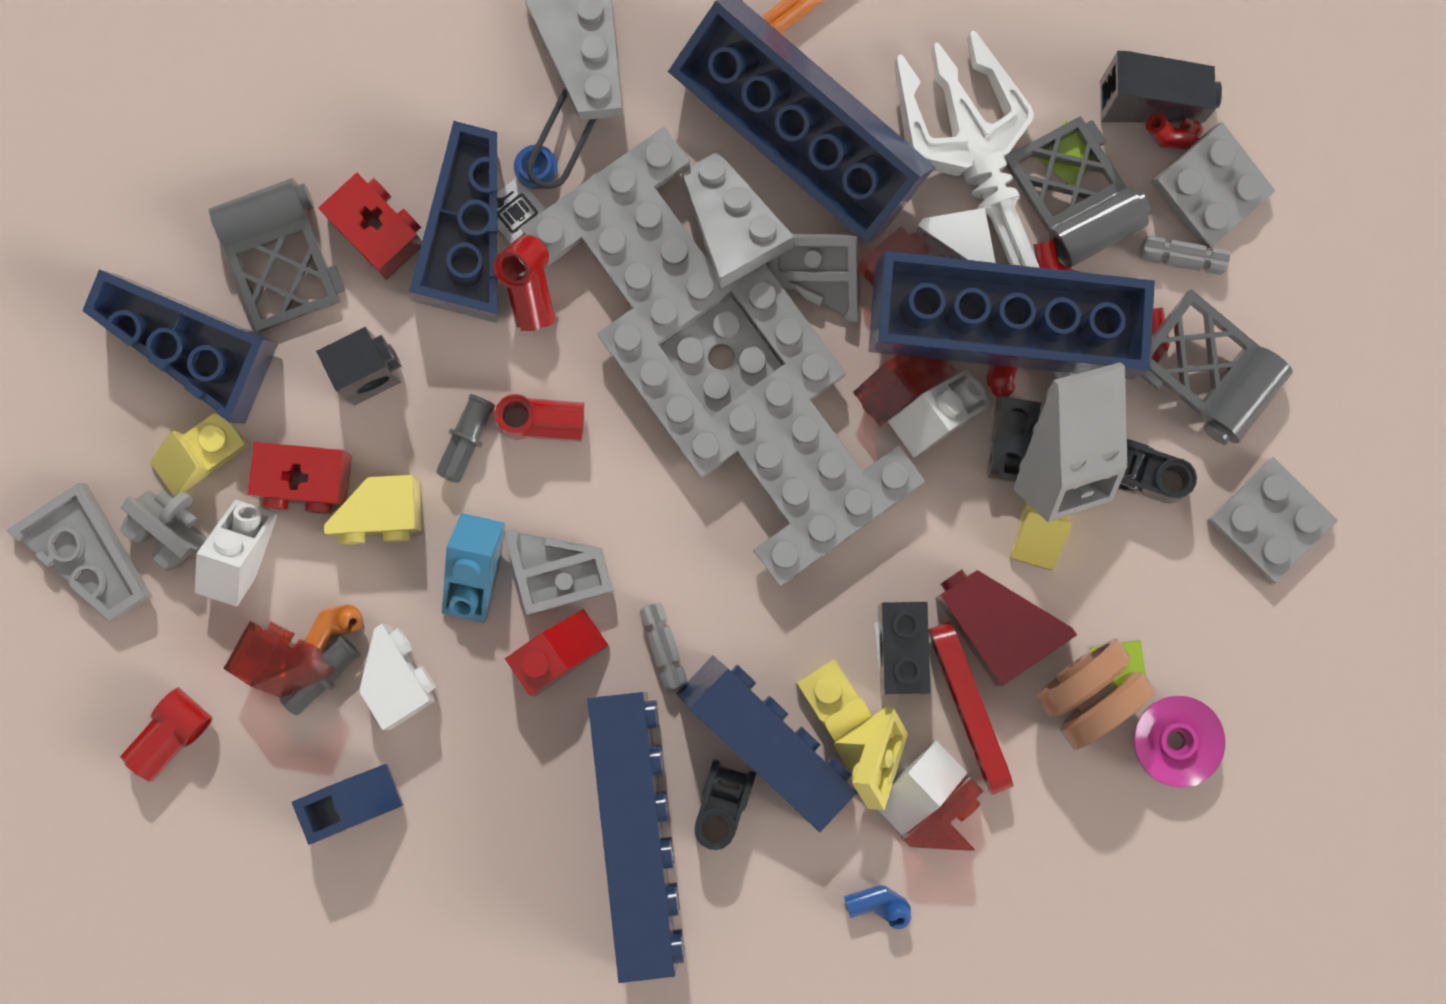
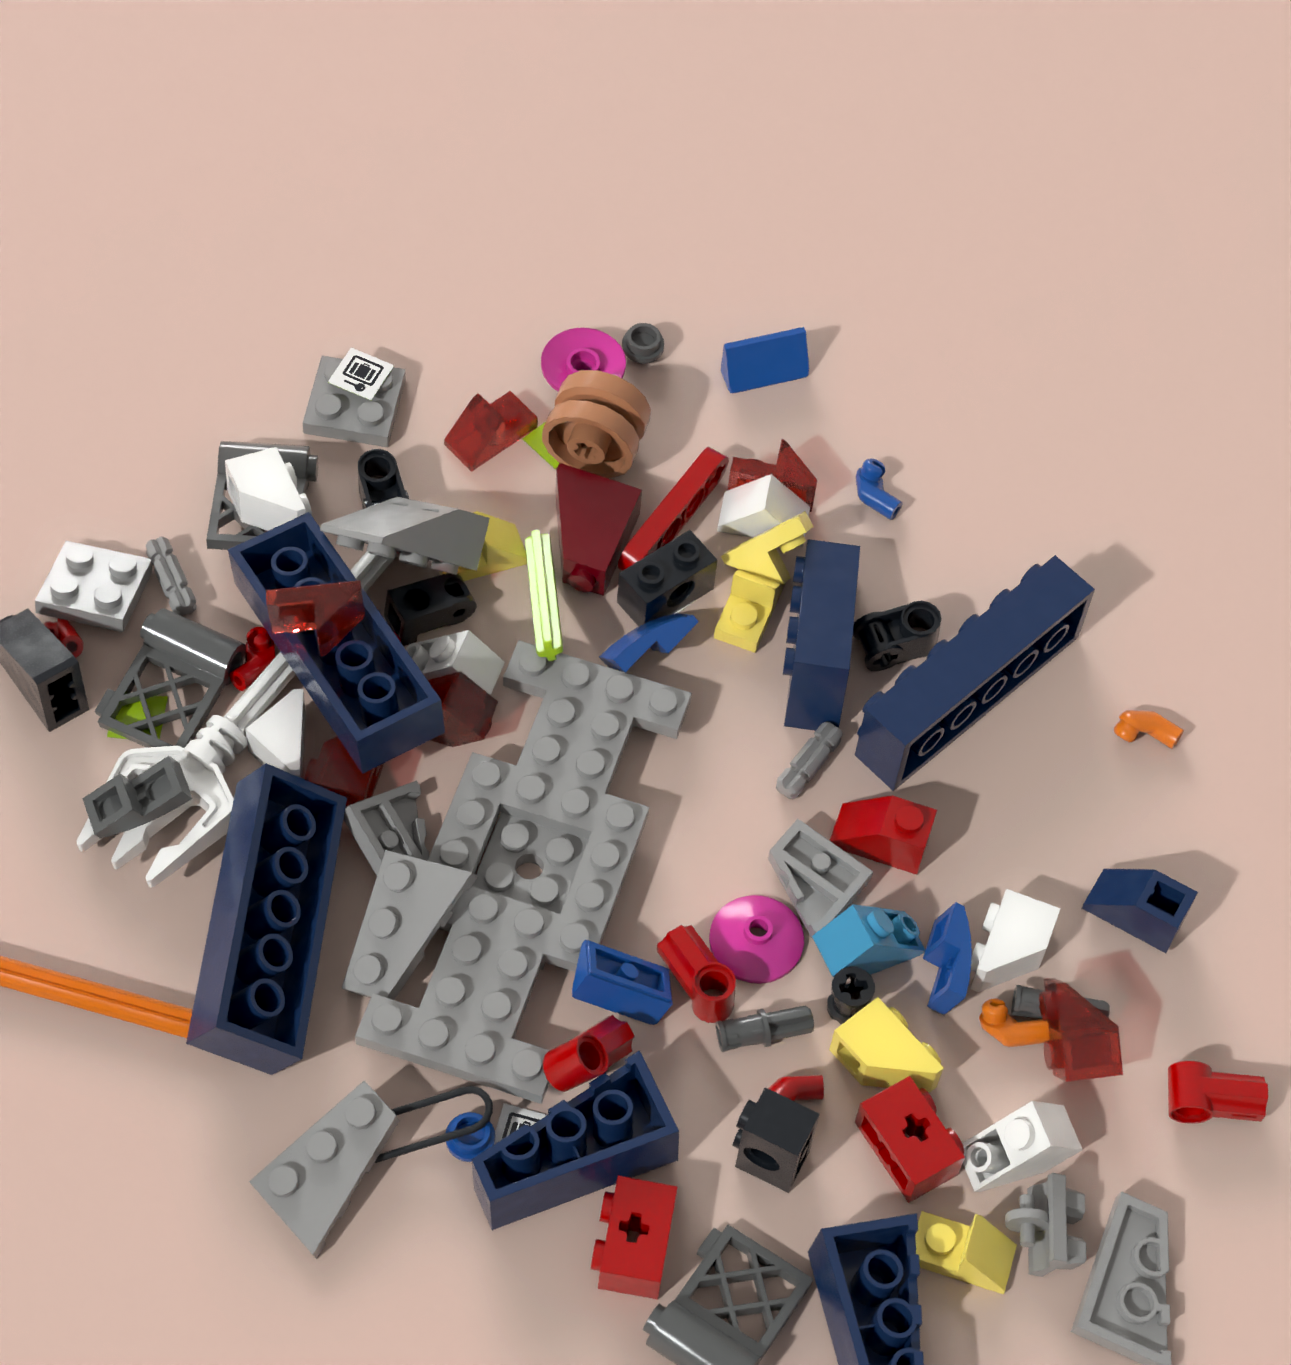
camera: 135 degrees left, 25 degrees down
(404, 414) = (800, 1087): none -> red arm
(425, 628) = (952, 952): none -> blue slope
(437, 505) = (860, 989): none -> black bush
(502, 952) = (1149, 722): none -> orange arm
(557, 511) = (751, 956): none -> dark pink dish
(571, 353) = (622, 983): none -> blue slope
(858, 603) = (658, 634): none -> blue slope
(955, 531) = (543, 595): none -> axle
(976, 88) = (132, 803): none -> dark grey slope
(1021, 302) = (328, 608): none -> clear red slope
(1076, 910) = (765, 360): none -> blue slope
(1163, 615) = (489, 428): none -> clear red slope
(1169, 814) = (643, 343): none -> dark grey plate
(1204, 359) = (264, 489): none -> white slope
(1291, 536) = (360, 373): none -> white sticker

